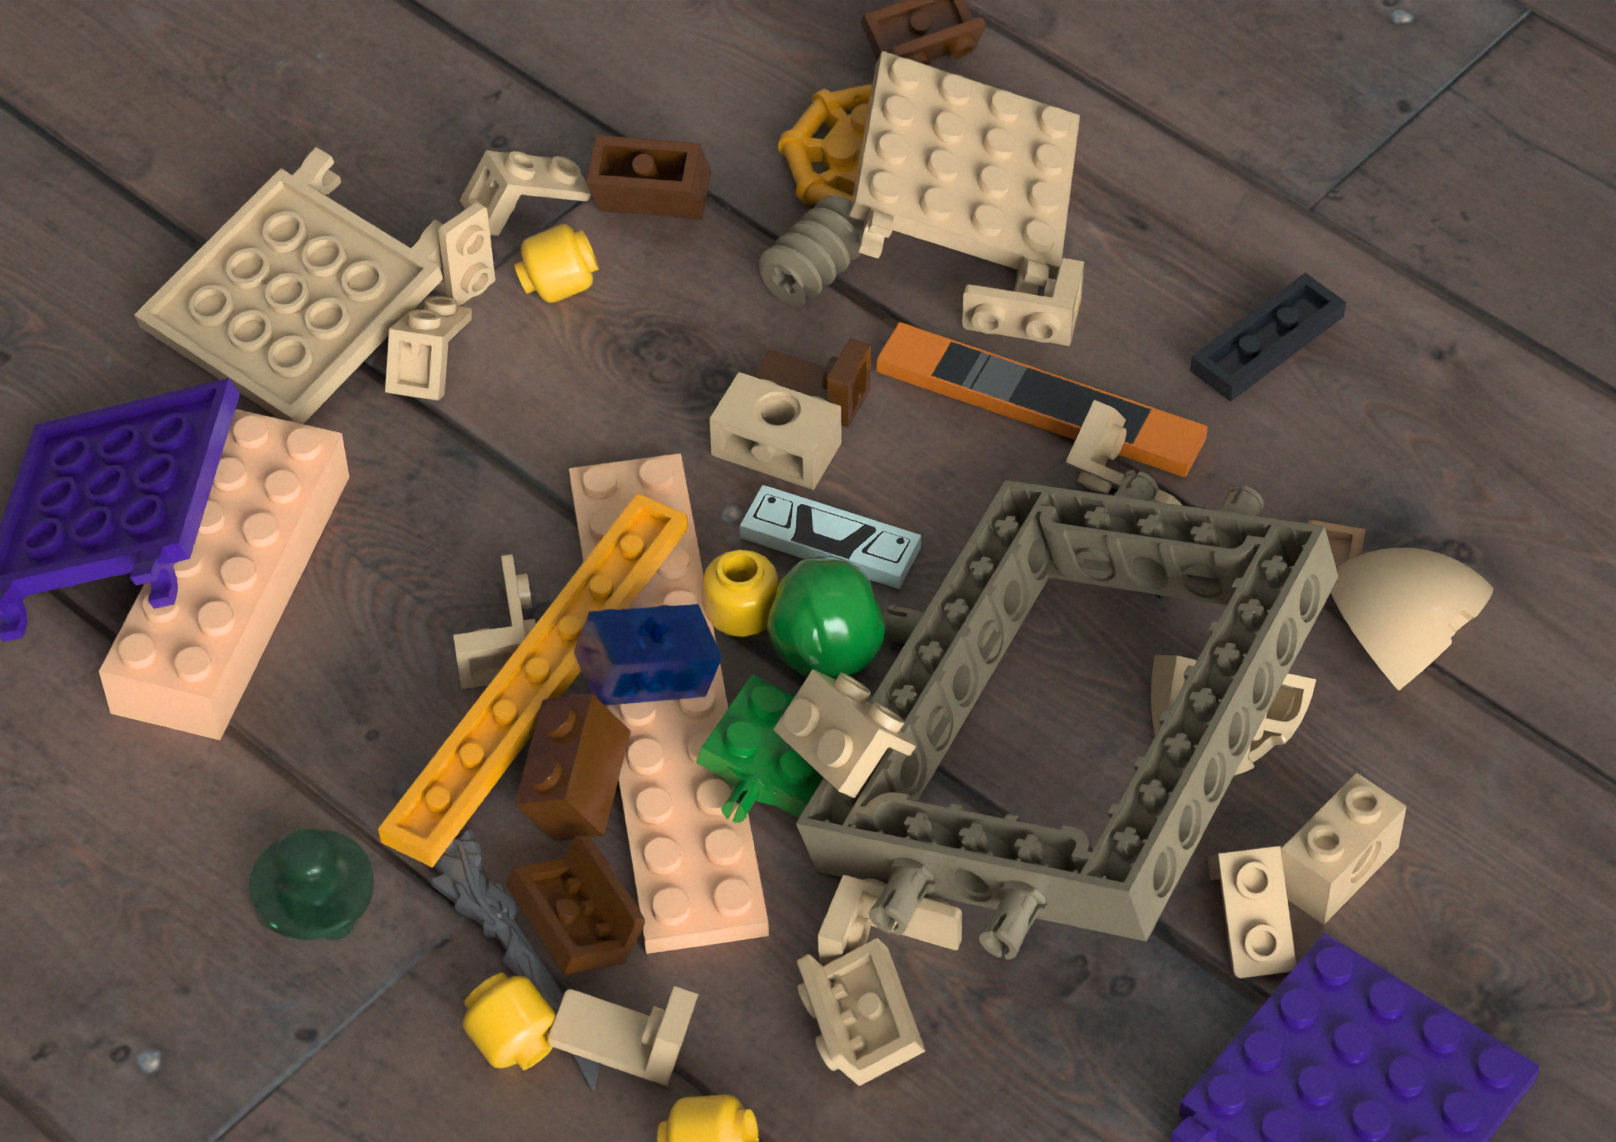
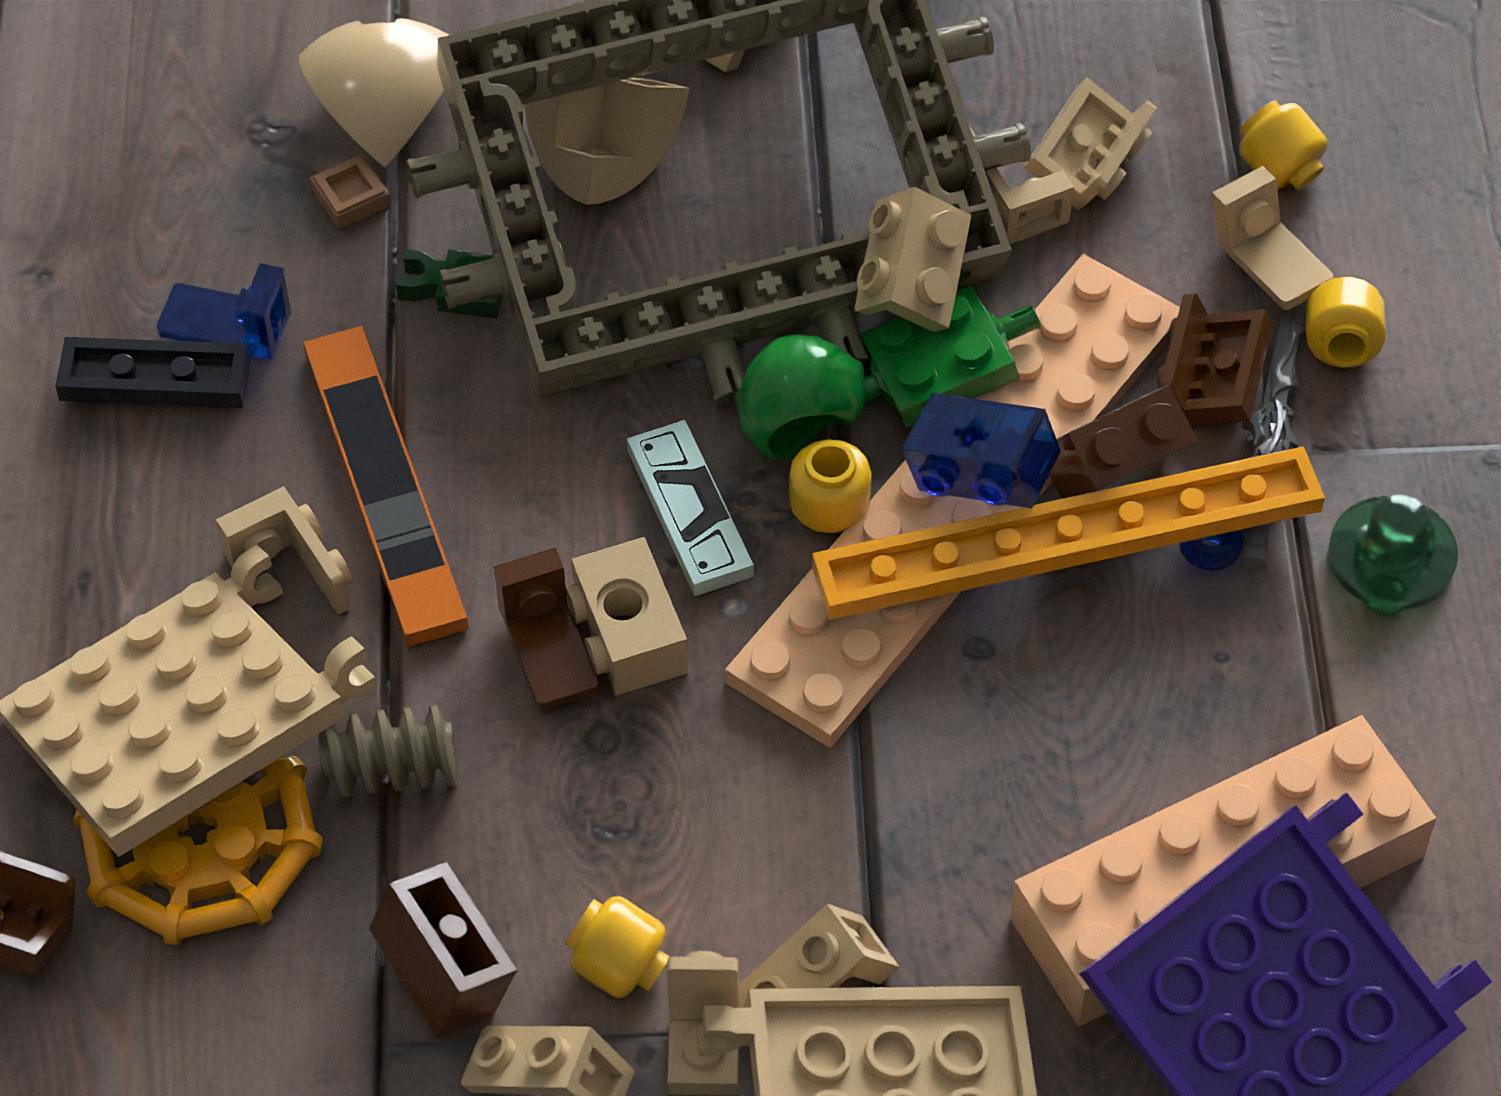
camera: 135 degrees left, 5 degrees up
(487, 650) = (1058, 601): tan bracket -> none
(1098, 441) = (426, 367): tan bracket -> none
(1266, 407) = (250, 318): none -> clear blue bracket

